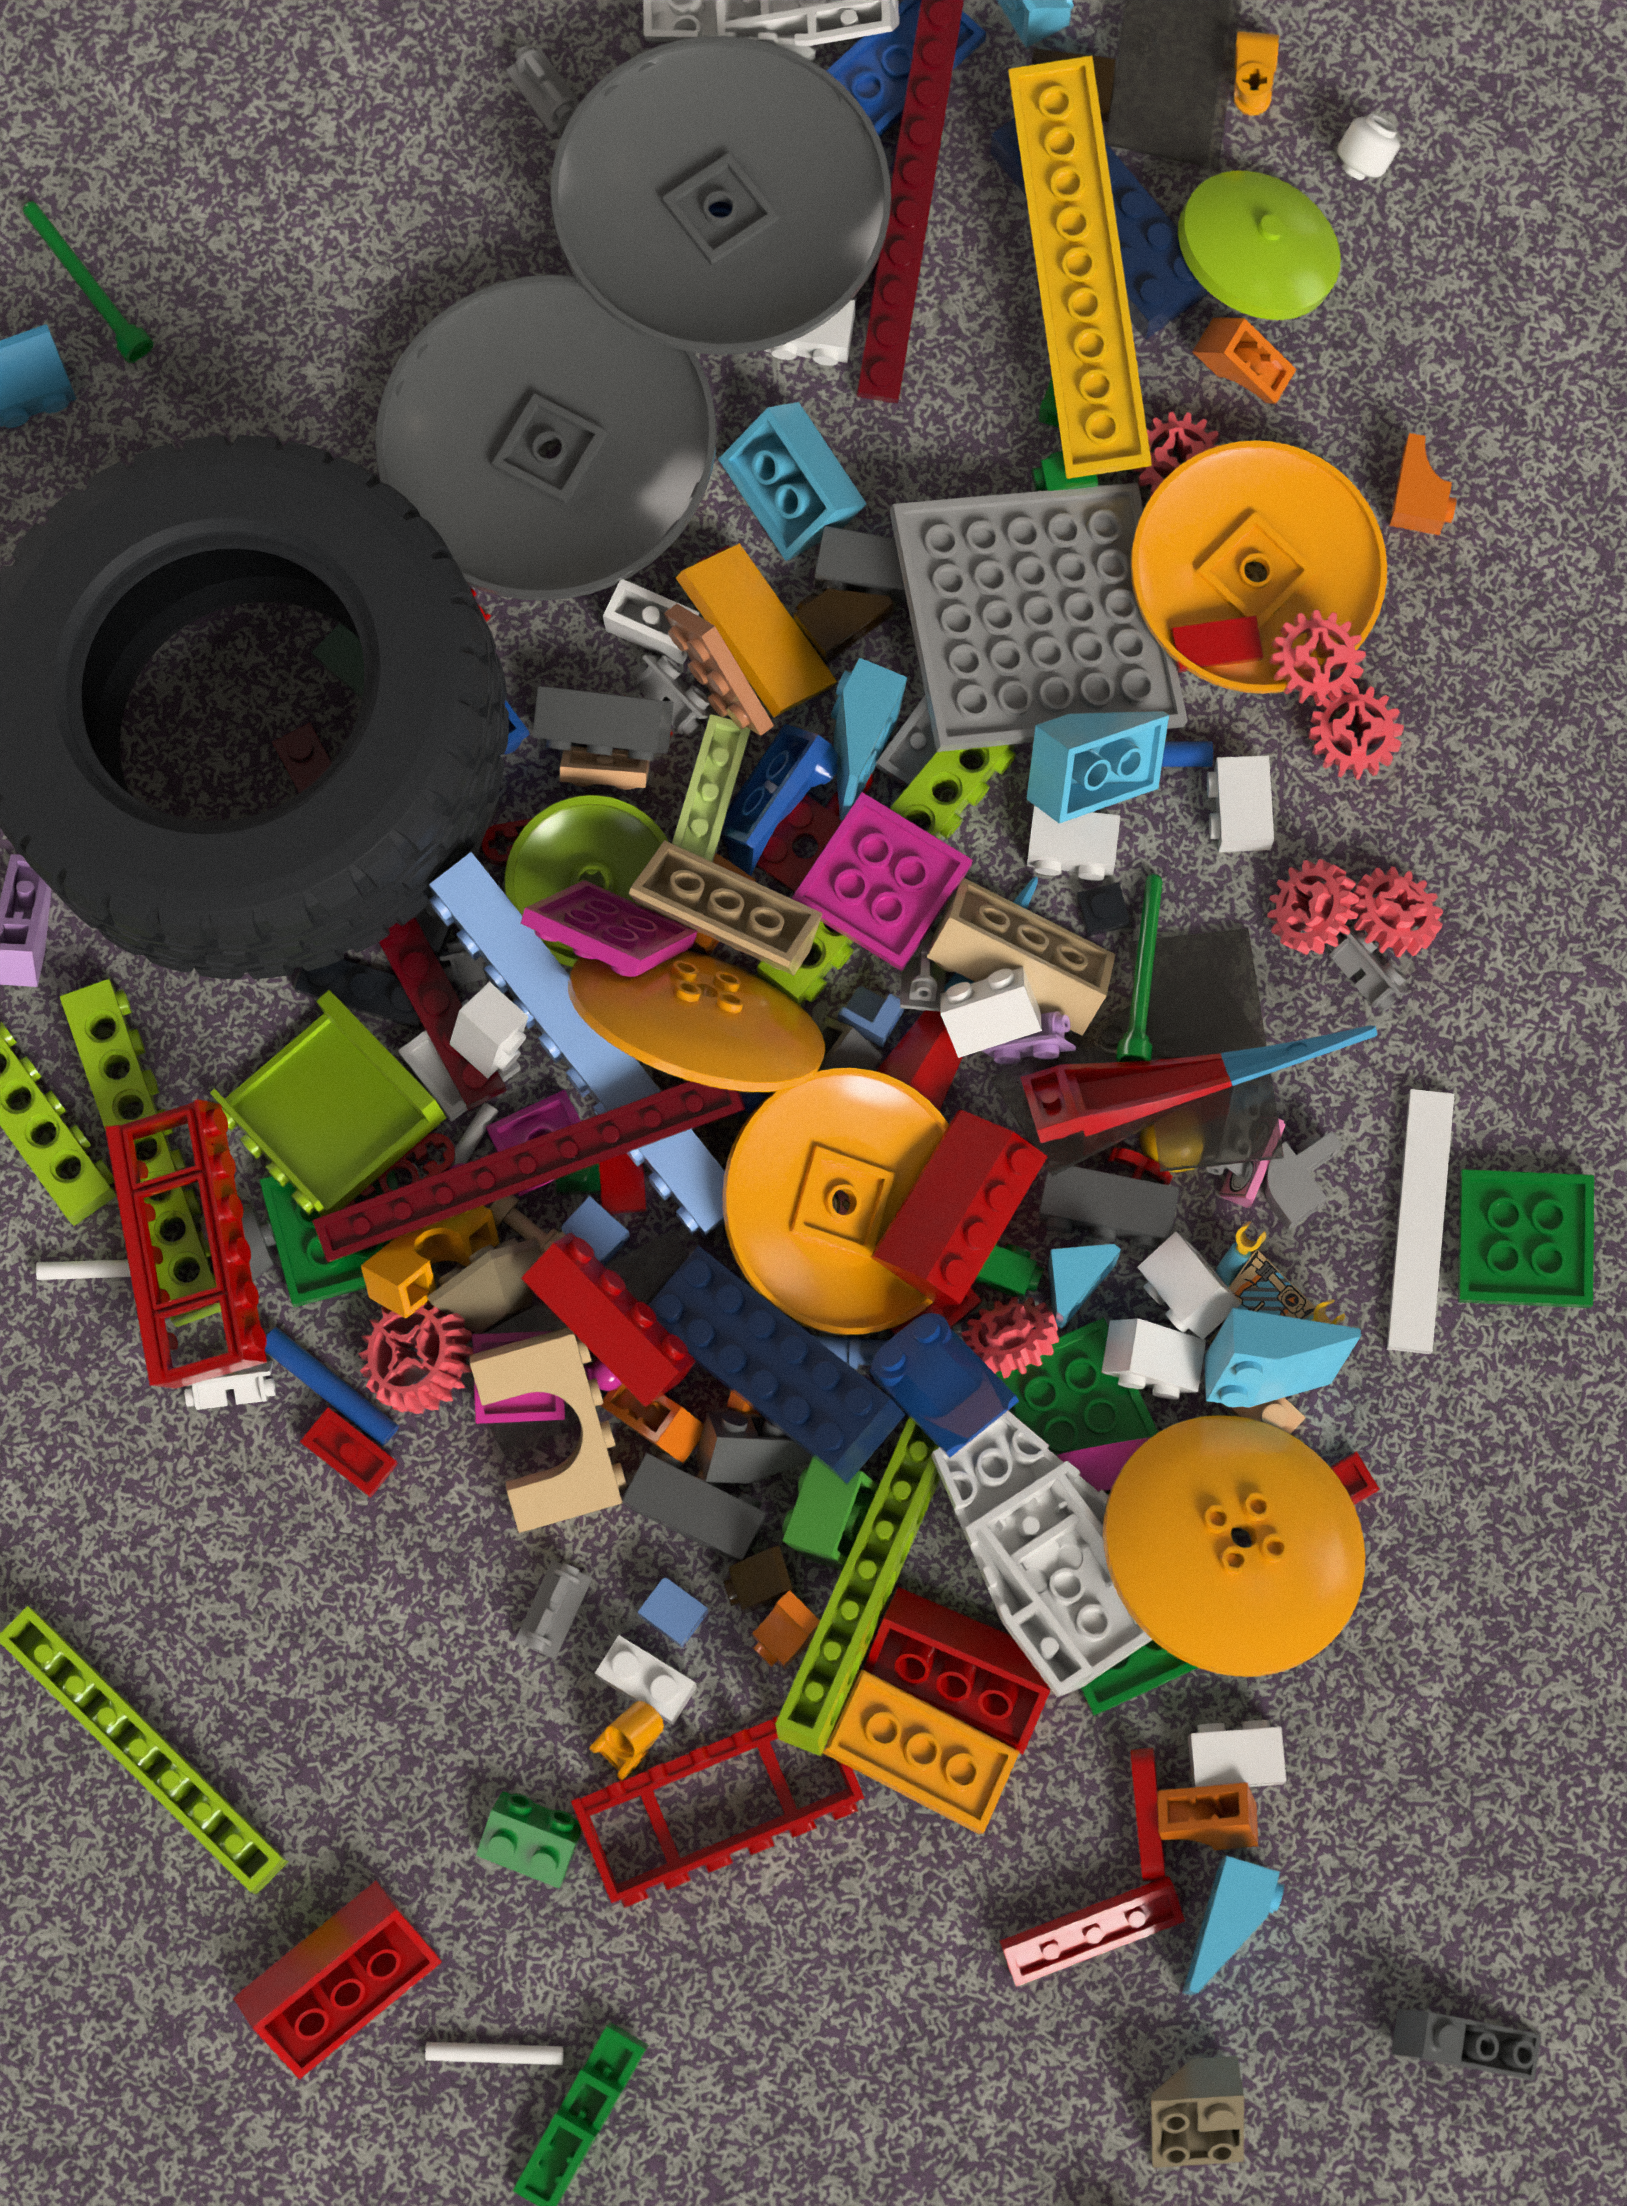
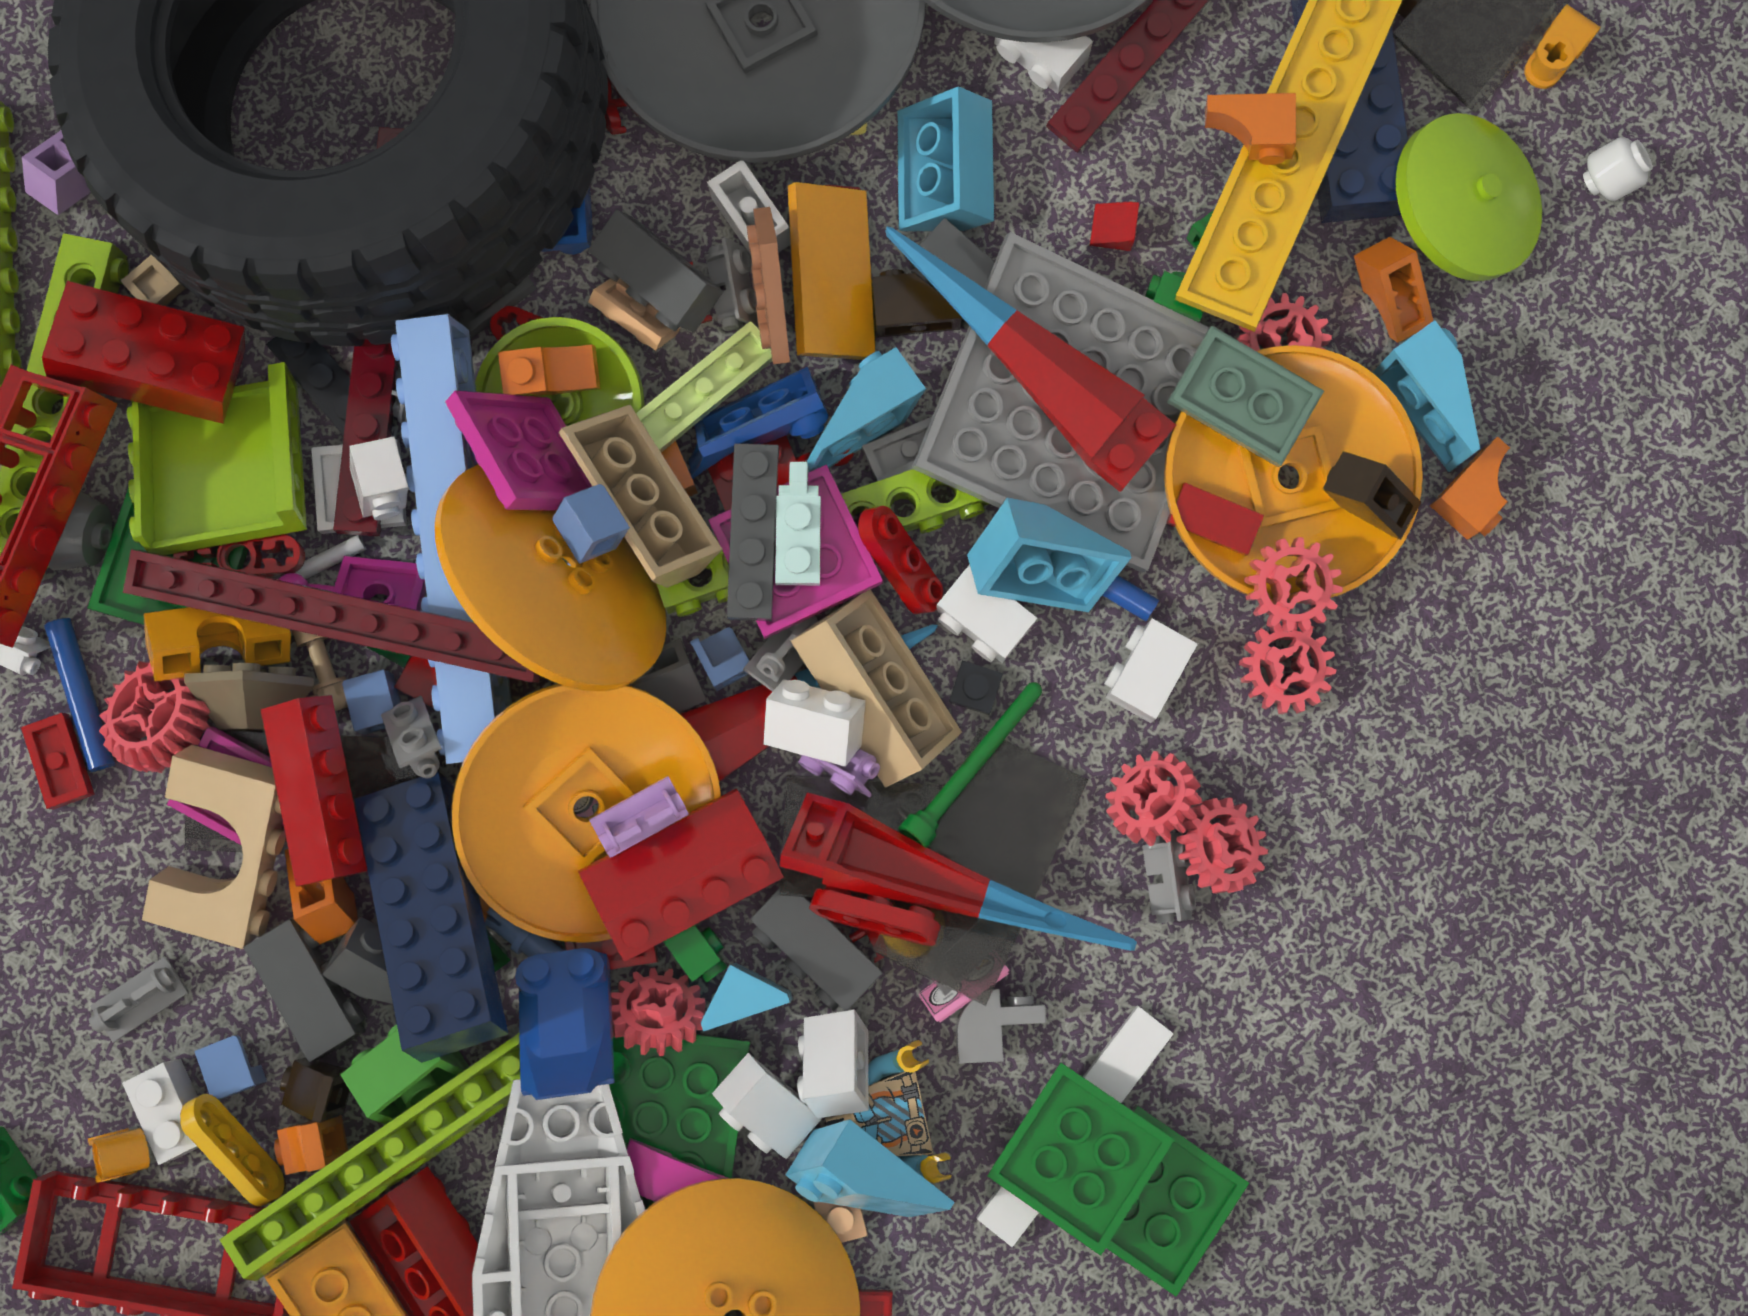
camera: 30 degrees right, 5 degrees up
(160, 997) = (152, 282): none -> tan plate
(210, 1049) = (144, 352): none -> red brick
(574, 854) = (549, 370): none -> orange arch
(658, 1229) = (413, 737): none -> light grey hinge
(706, 950) = (590, 523): none -> medium blue panel
(723, 1674) = (232, 1149): none -> yellow plate
(838, 884) = (753, 532): none -> dark grey plate
(875, 859) = (798, 530): none -> light aqua hinge
(895, 1177) = (639, 816): none -> lavender hinge
(971, 446) = (1114, 225): none -> red slope
(974, 836) = (900, 559): none -> red plate
(1047, 288) = (1259, 121): none -> orange arch
(1051, 609) = (1088, 404): none -> red plate
(1145, 1137) = (876, 915): none -> red plate
(1178, 524) = (1245, 396): none -> sand green tile
(1332, 426) = (1434, 391): none -> medium azure slope
(1335, 542) = (1372, 493): none -> dark brown slope
(1441, 1237) = (1080, 1158): none -> green plate

